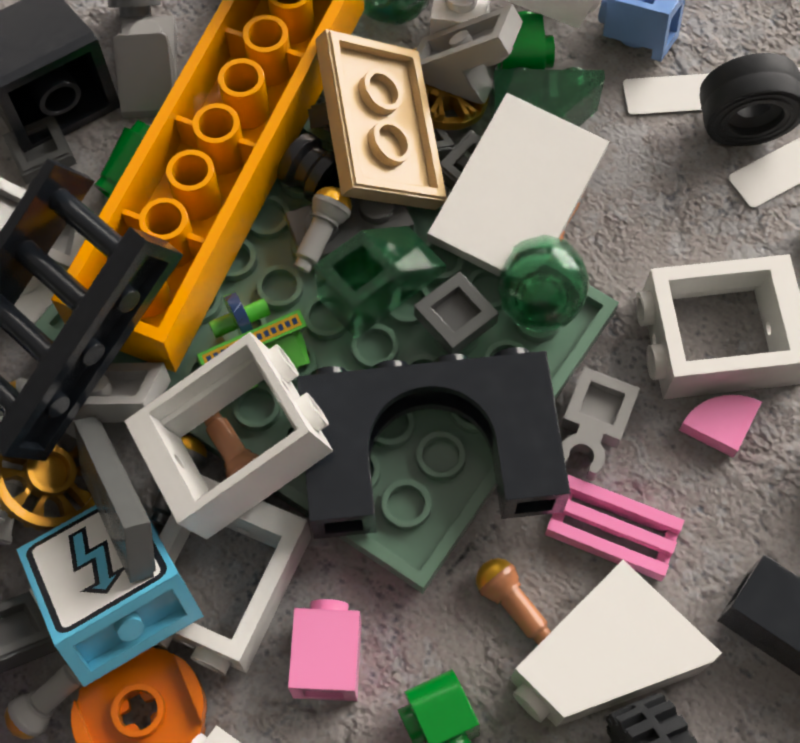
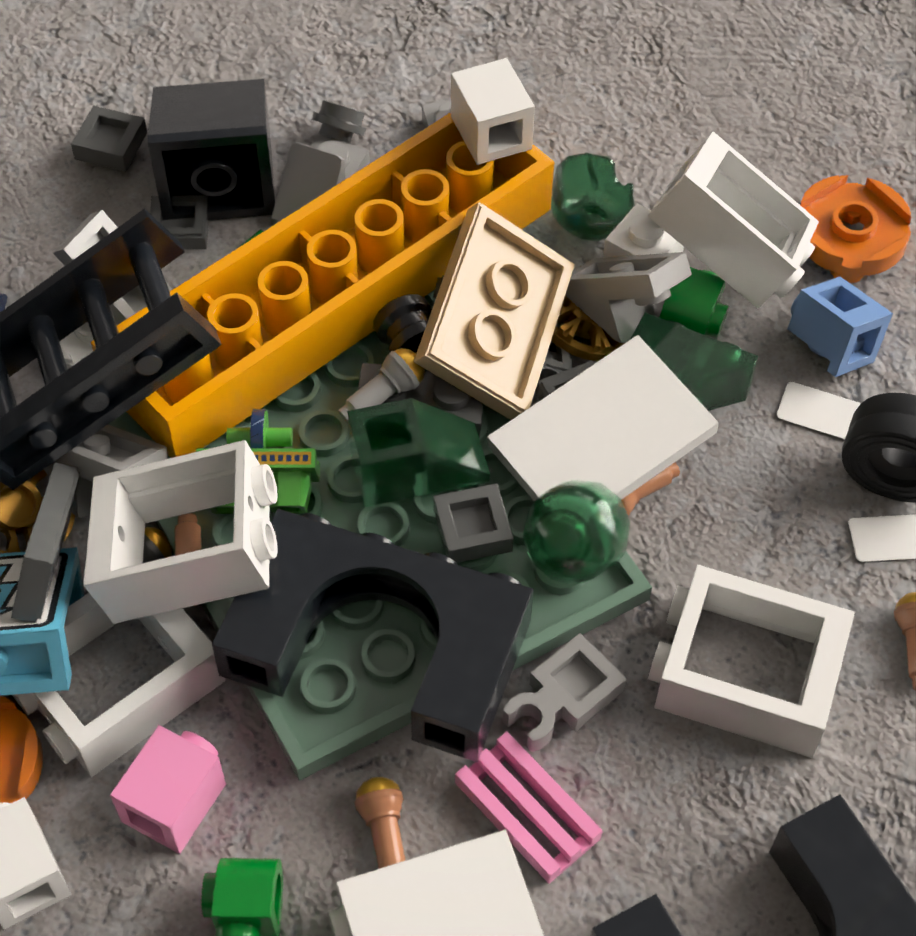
camera: 25 degrees right, 10 degrees down
(722, 422) = (701, 754): bright pink tile -> none

